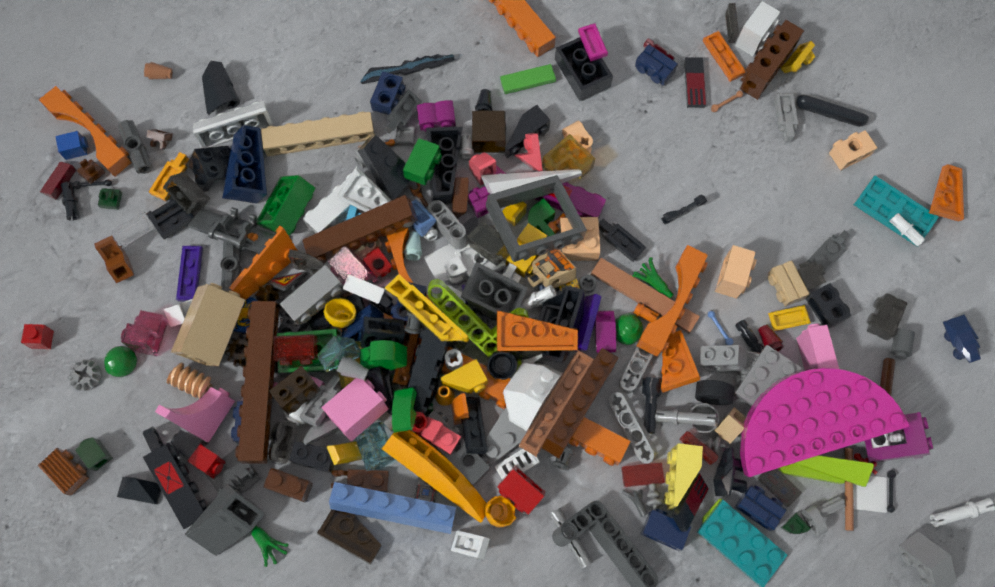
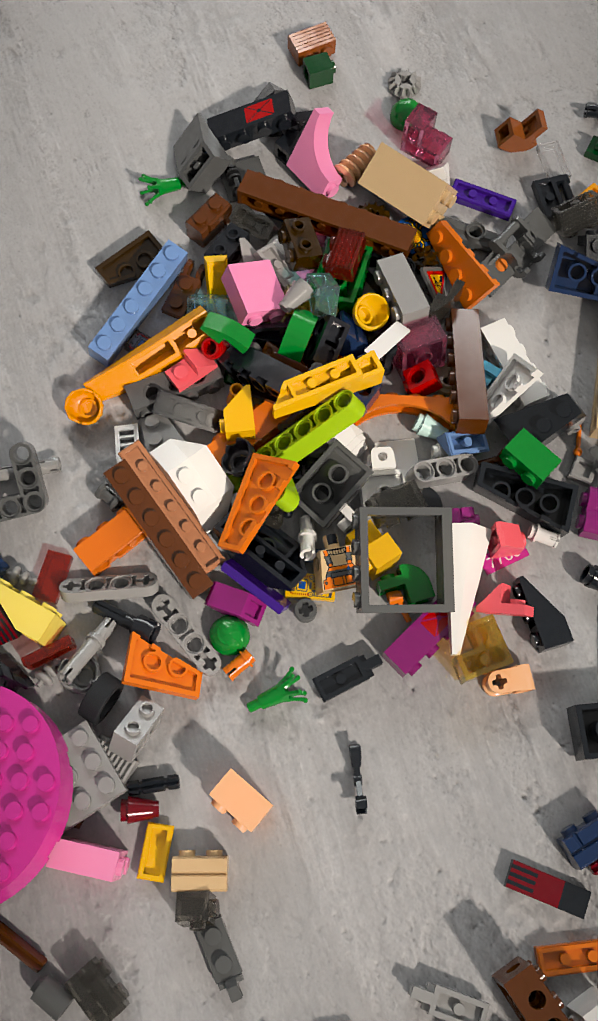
camera: 110 degrees right, 0 degrees up
(37, 336) = (460, 51): red brick -> none
(206, 461) = (266, 155): red brick -> none
(286, 204) = (529, 311): green slope -> none
(452, 354) = (266, 418): white bush -> none
(459, 409) = (210, 402): orange slope -> none
(460, 196) = (475, 498): reddish brown slope -> none
(470, 545) = (65, 367): white slope -> none
(489, 131) = (554, 566): dark brown piece -> none
(515, 212) = (427, 559): yellow panel -> none
(521, 490) = (96, 435): red brick -> none
(589, 247) = (365, 630): light nougat brick -> none
(637, 500) = (26, 558): dark grey bar -> none
(641, 293) = (262, 676): nougat tile -> none
(657, 332) = (273, 743): orange arch -> none
(714, 108) = (497, 900): nougat hinge -> none
(729, 341) = (161, 756): medium blue hinge -> none
(731, 425) = (54, 701): tan brick -> none
(823, 309) = (145, 907): black brick -> none

